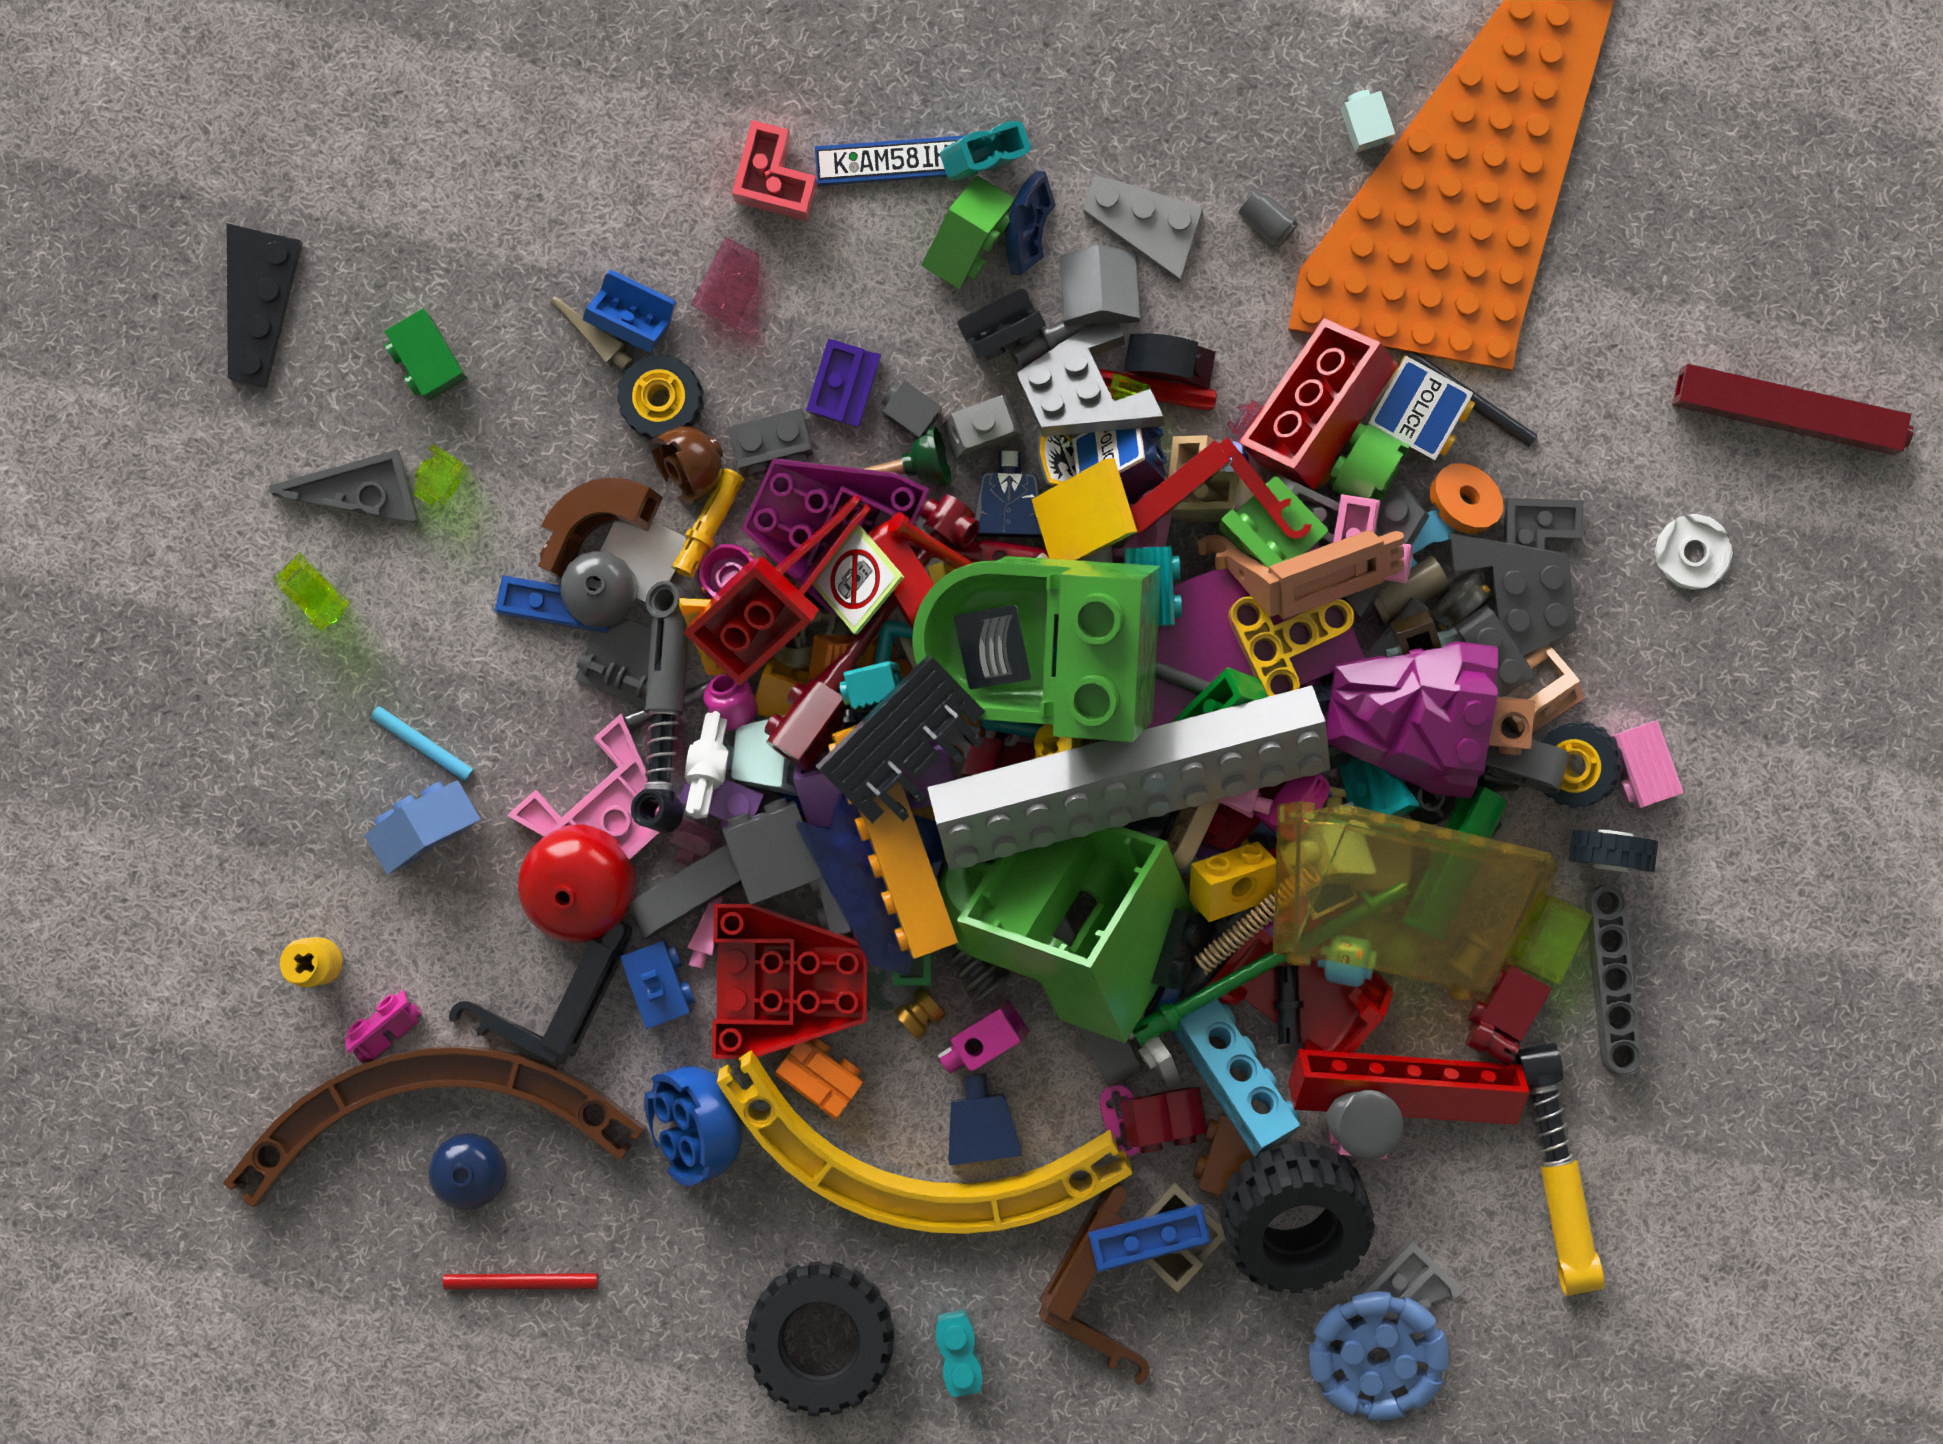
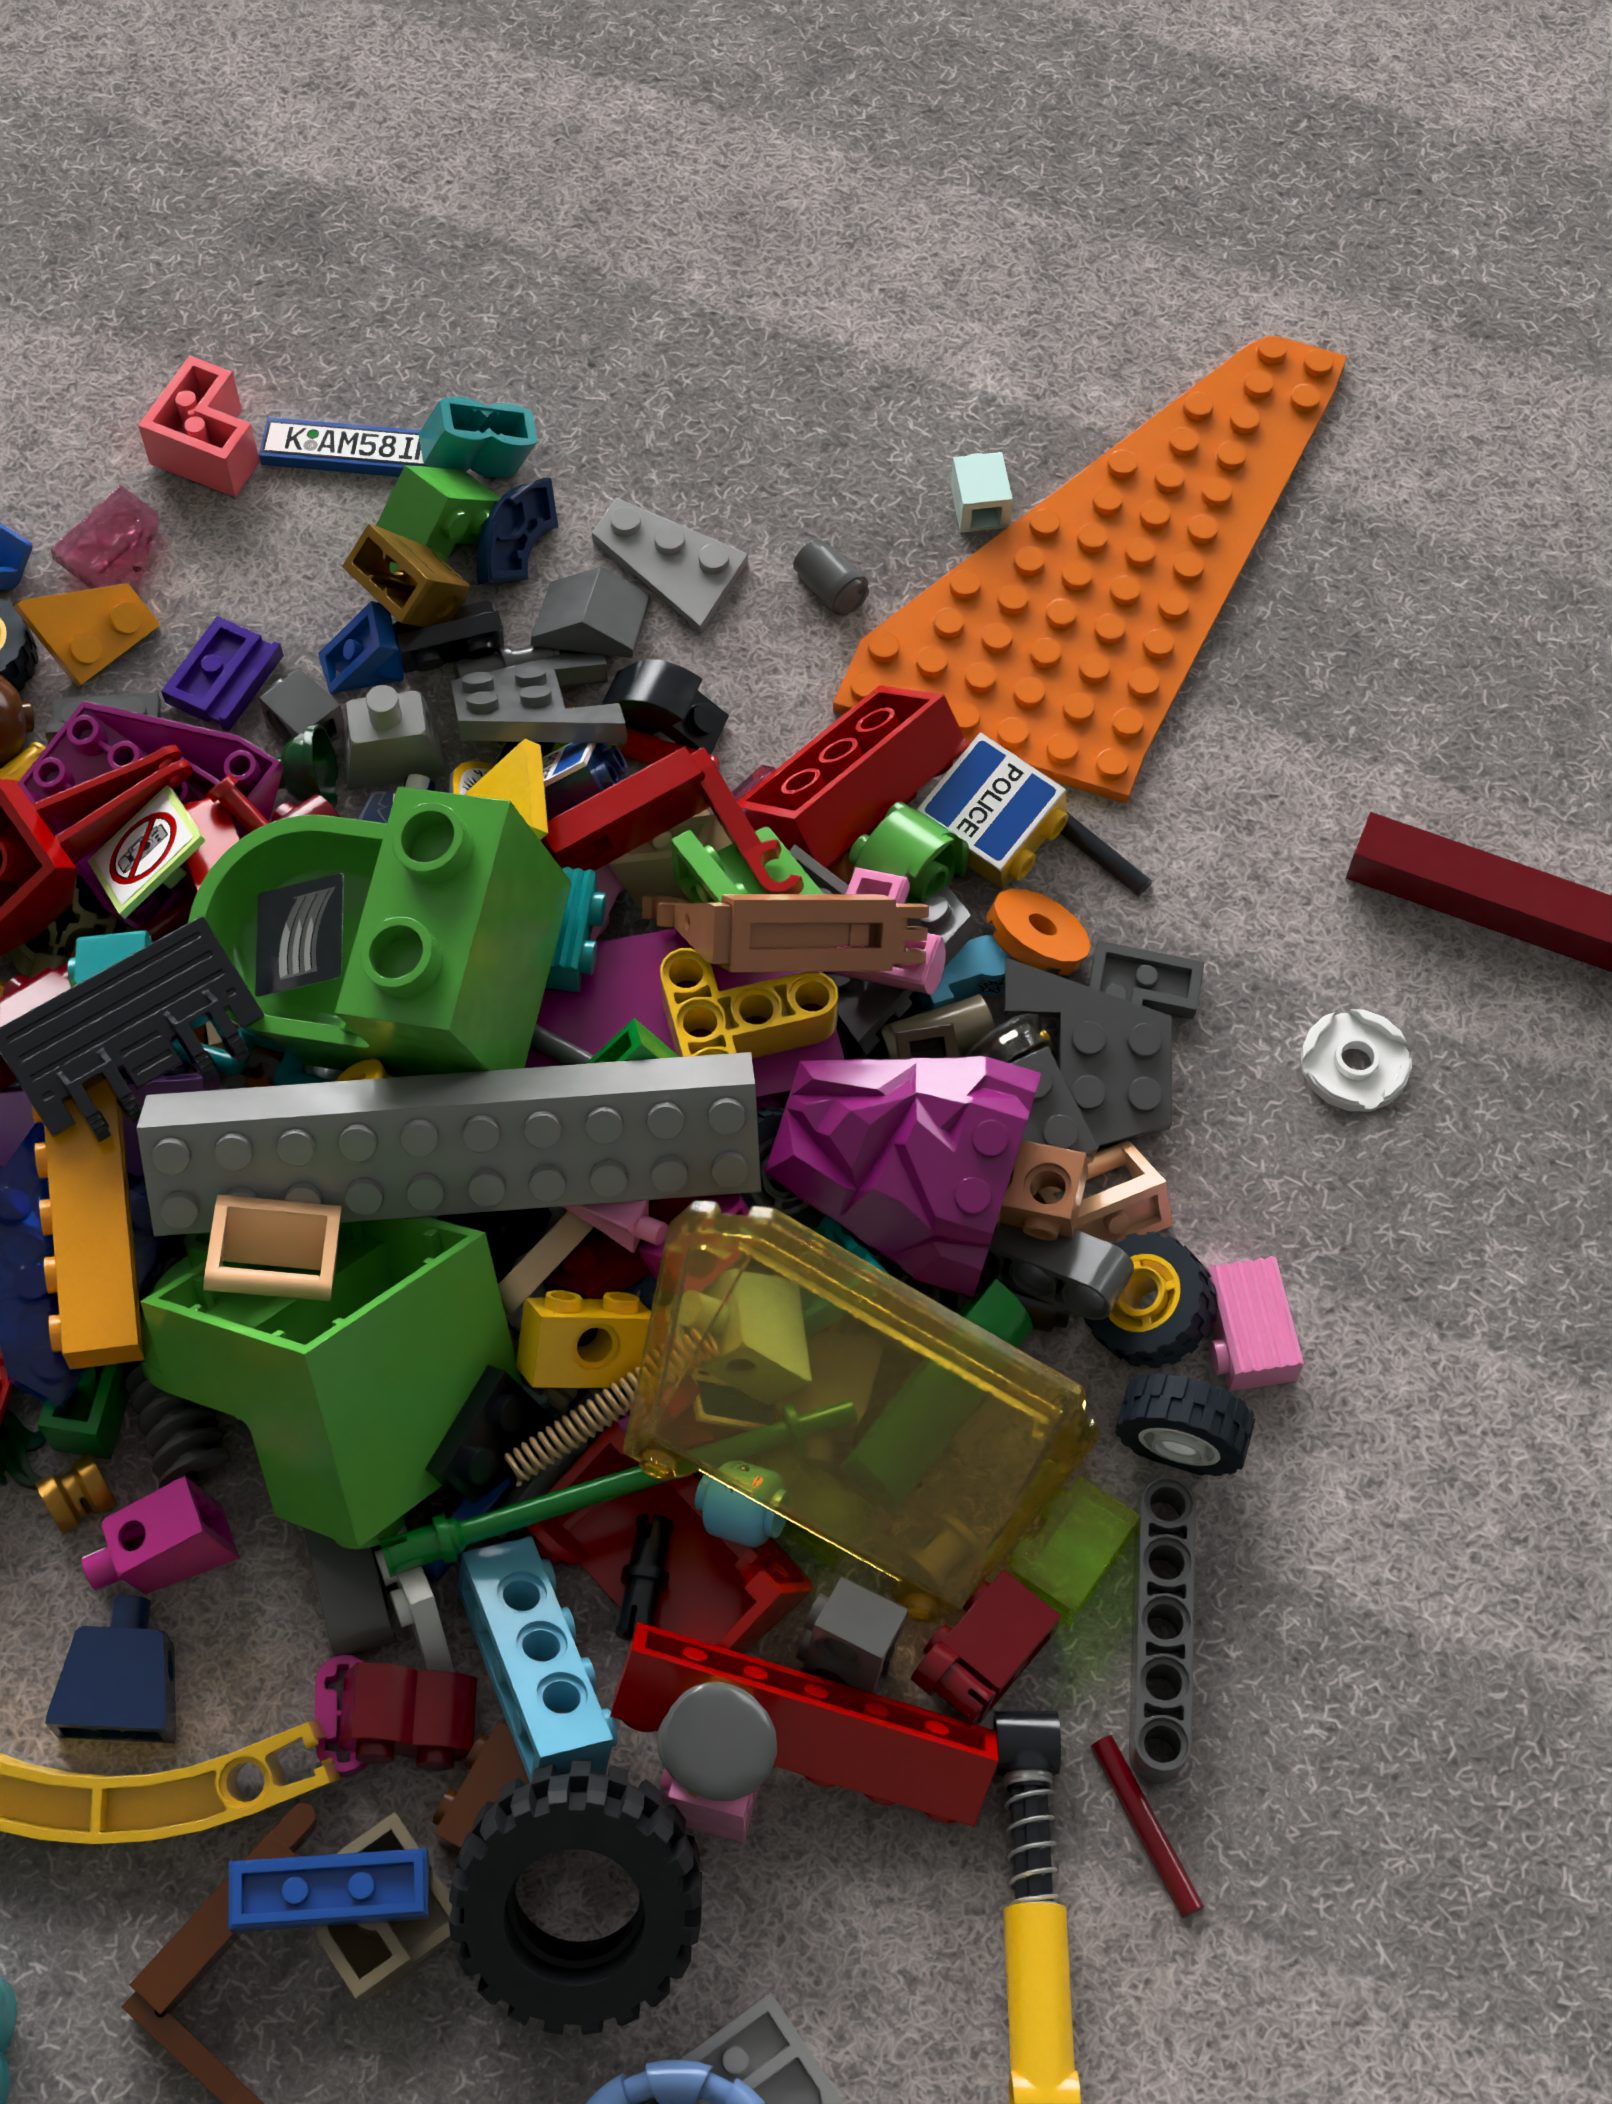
camera: 10 degrees right, 25 degrees down
(739, 365) = (88, 626): none -> light orange wing
(942, 350) = (363, 652): none -> blue slope
(970, 301) = (421, 590): none -> pearl gold torso
(1033, 861) = (273, 1235): none -> light nougat tile
(1426, 1031) = (852, 1636): none -> dark grey brick
(1617, 1099) = (1147, 1826): none -> dark red bar

